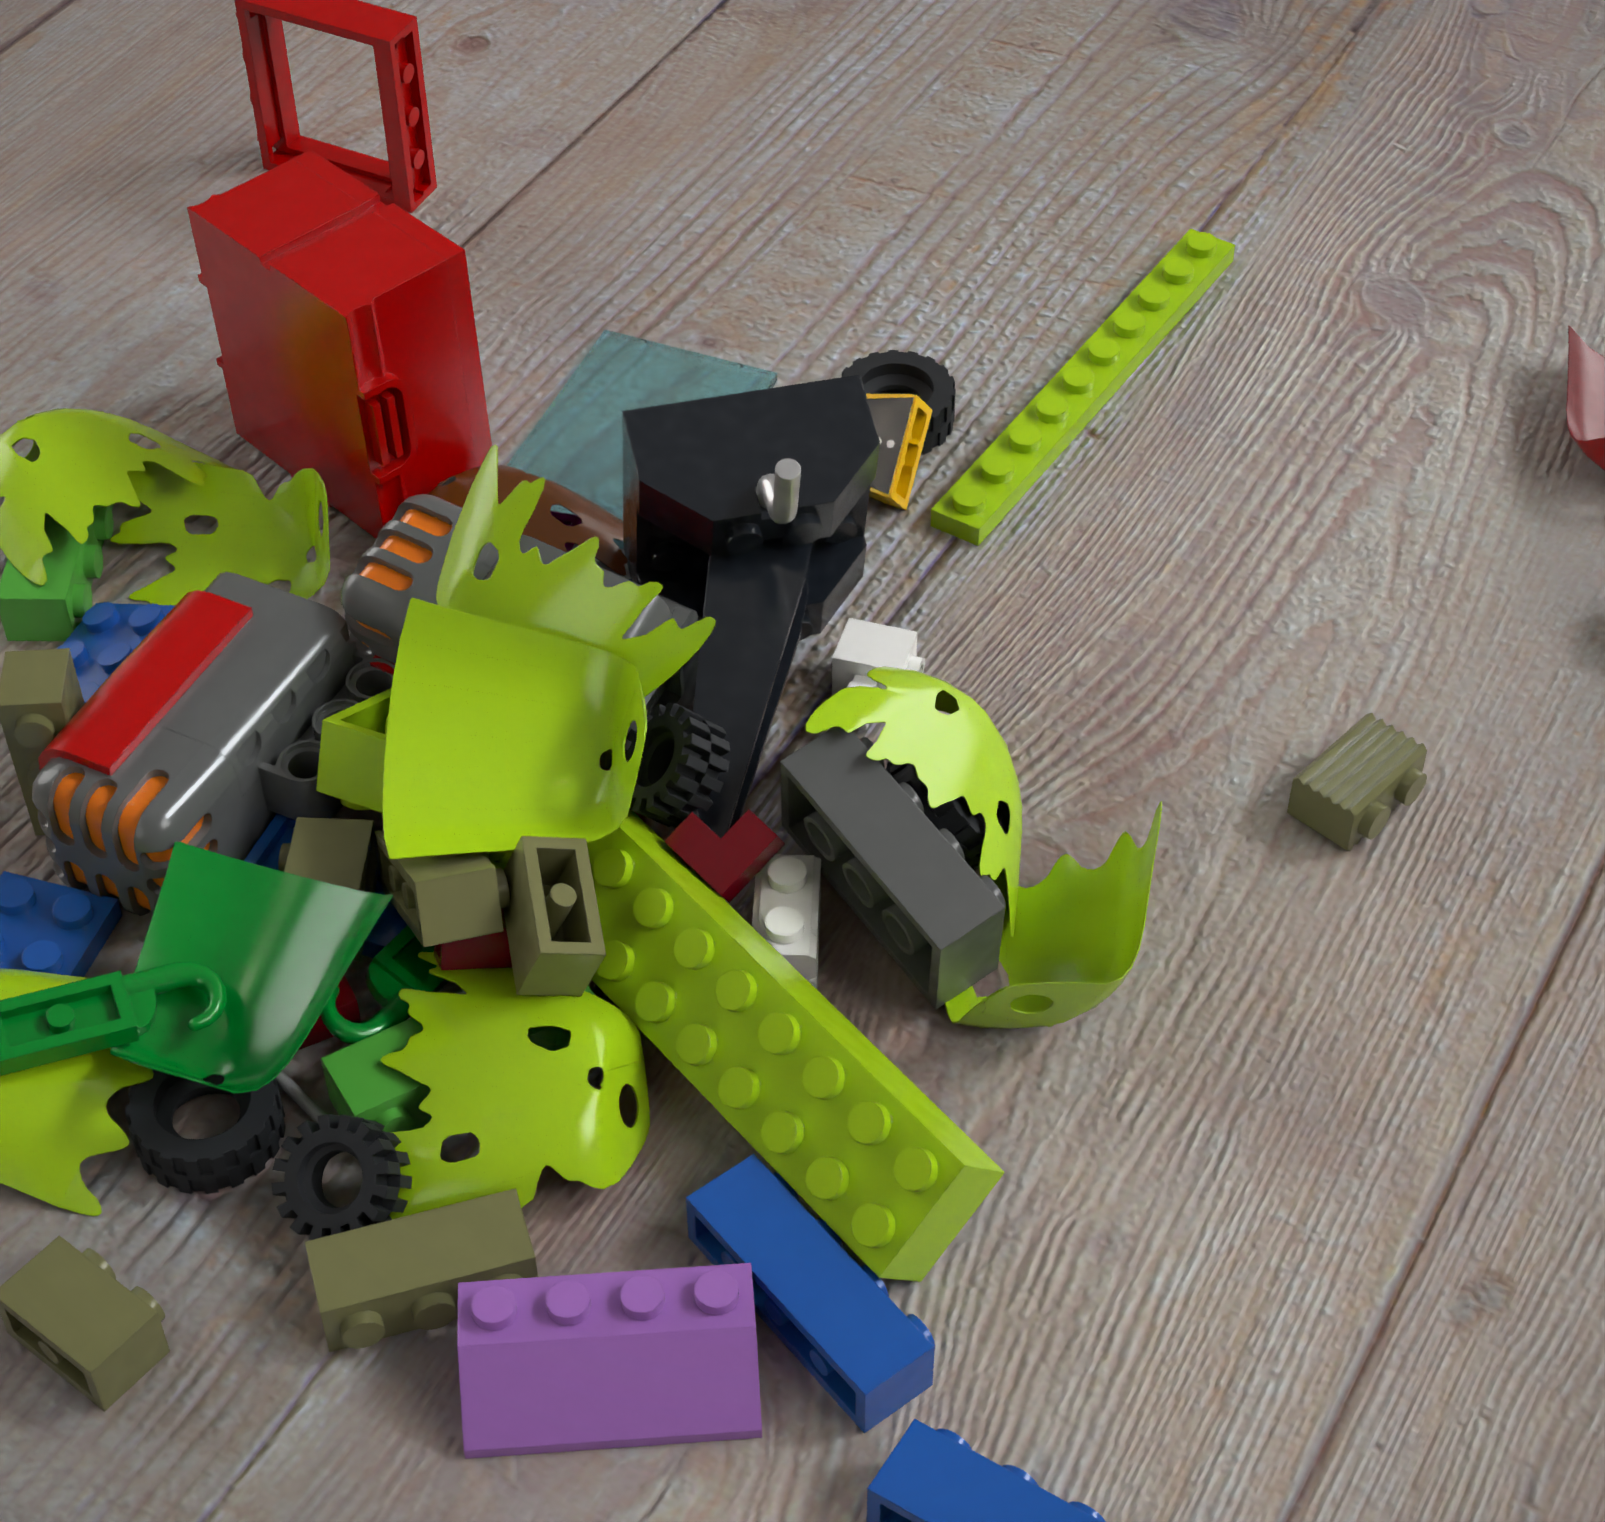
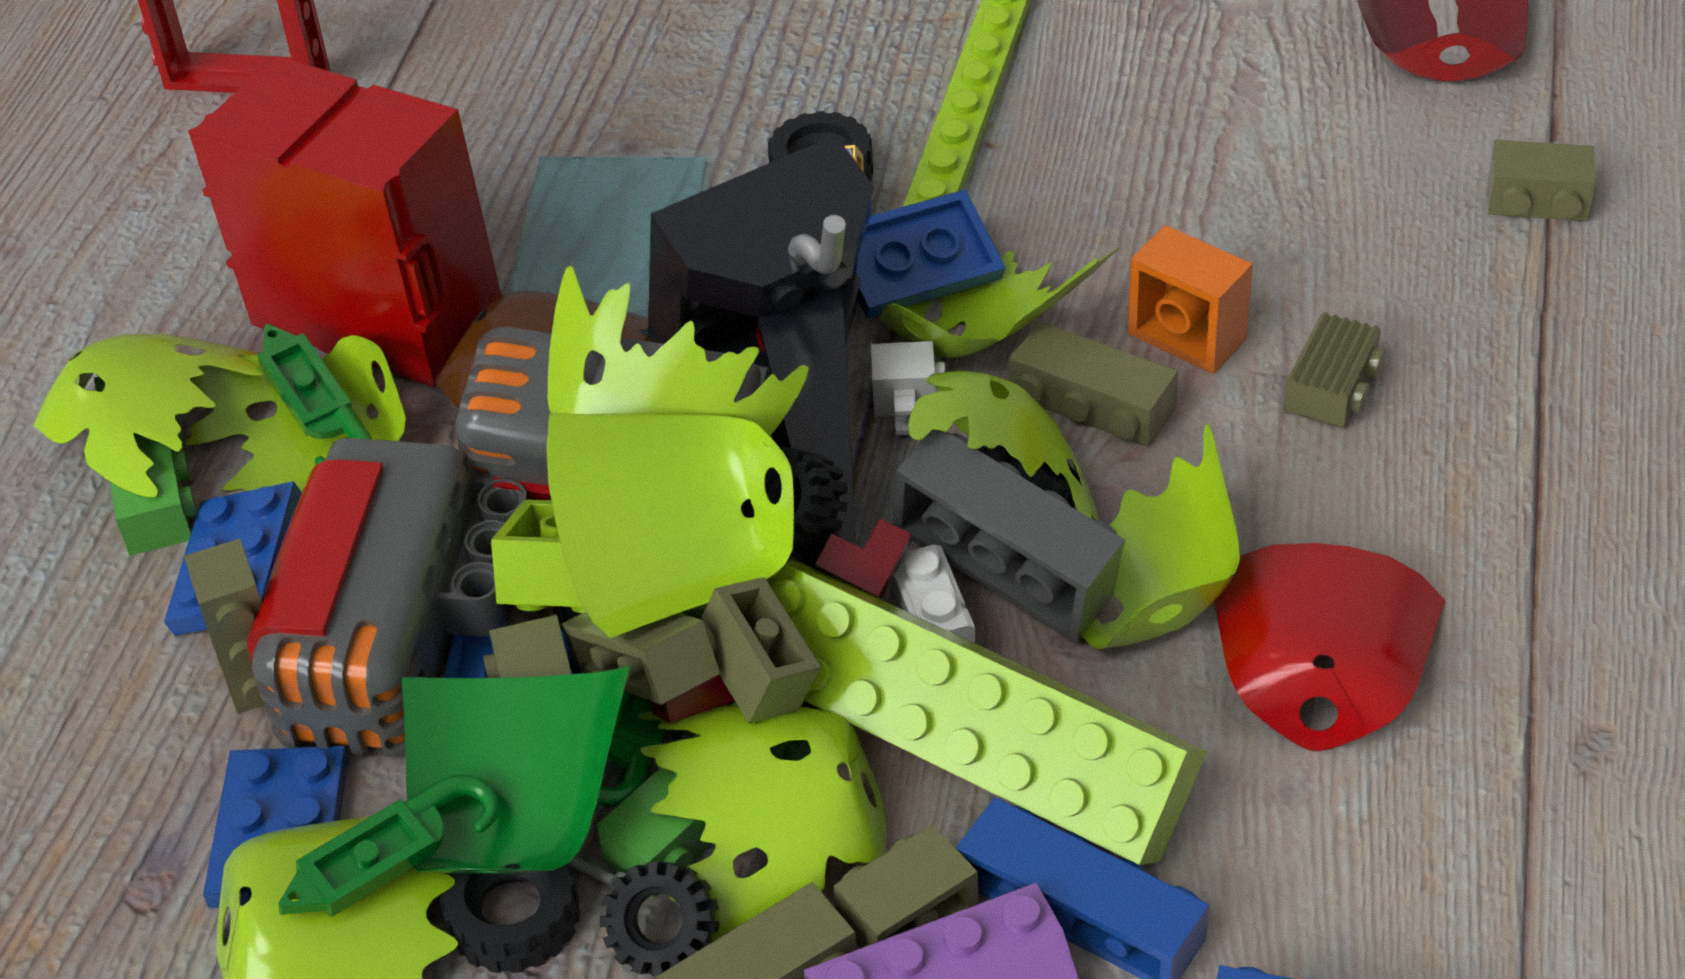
camera: 15 degrees left, 0 degrees up
(249, 513) = (308, 387): none -> green plate
(619, 1225) = (906, 887): none -> olive brick
(949, 532) = (925, 253): none -> blue plate
(1000, 606) = (988, 310): none -> lime piece
(1080, 726) = (1095, 383): none -> olive brick
(1223, 658) = (1189, 298): none -> orange brick
(1245, 1055) = (1335, 603): none -> red piece

